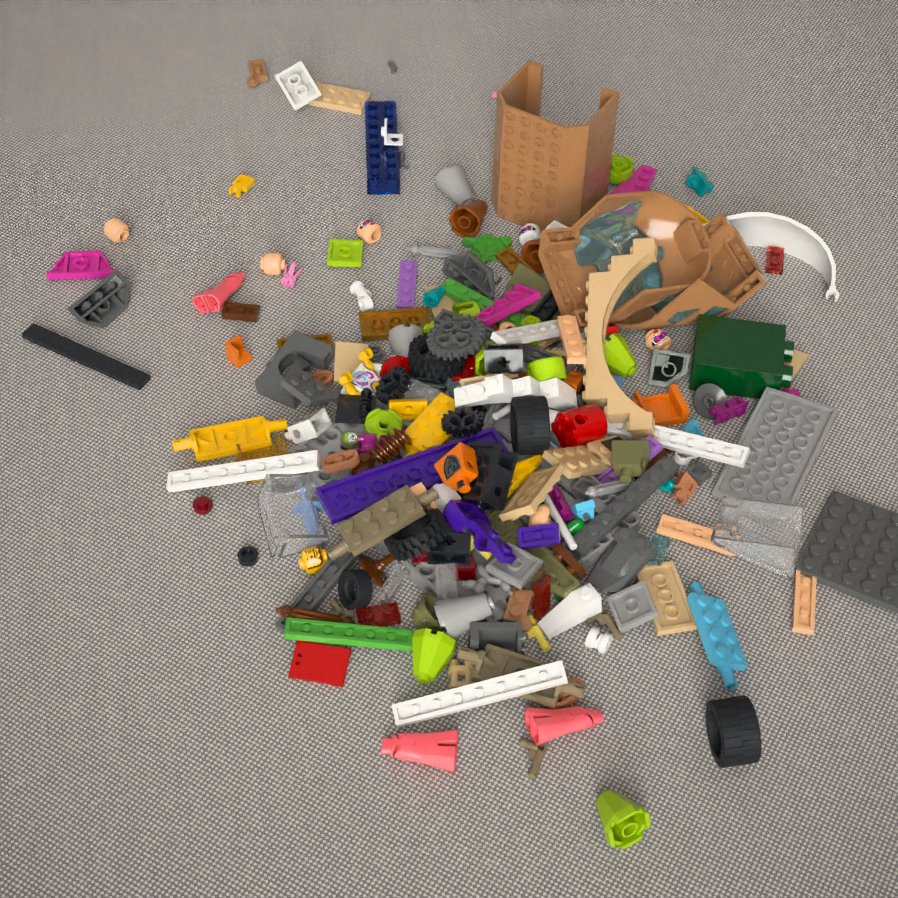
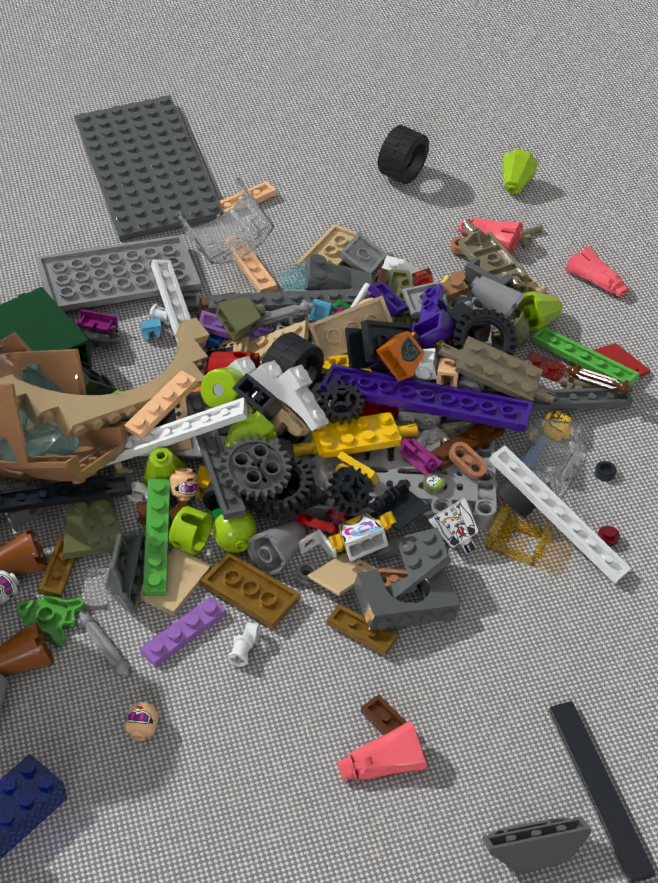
camera: 135 degrees left, 0 degrees up
(221, 439) = (530, 578): yellow plate -> none
(236, 352) = (438, 668): orange panel -> none
(272, 263) = (291, 754): light nougat head -> none
(288, 278) = (291, 726): bright pink piece -> none
(345, 253) = (197, 716): lime plate -> none
(363, 589) = (553, 373): black tyre -> none
(383, 417) = (406, 468): lime plate -> none
(391, 445) = (421, 428): reddish brown piece -> none
(434, 296) = (184, 581): teal cone -> none
(479, 693) = (536, 262): white plate -> none
(511, 303) = (150, 493): dark pink wing -> none
(598, 640) = (409, 253): white wheel -> none
(666, 407) = (139, 361): orange panel -> none
(717, 634) = (326, 215): medium azure plate -> none

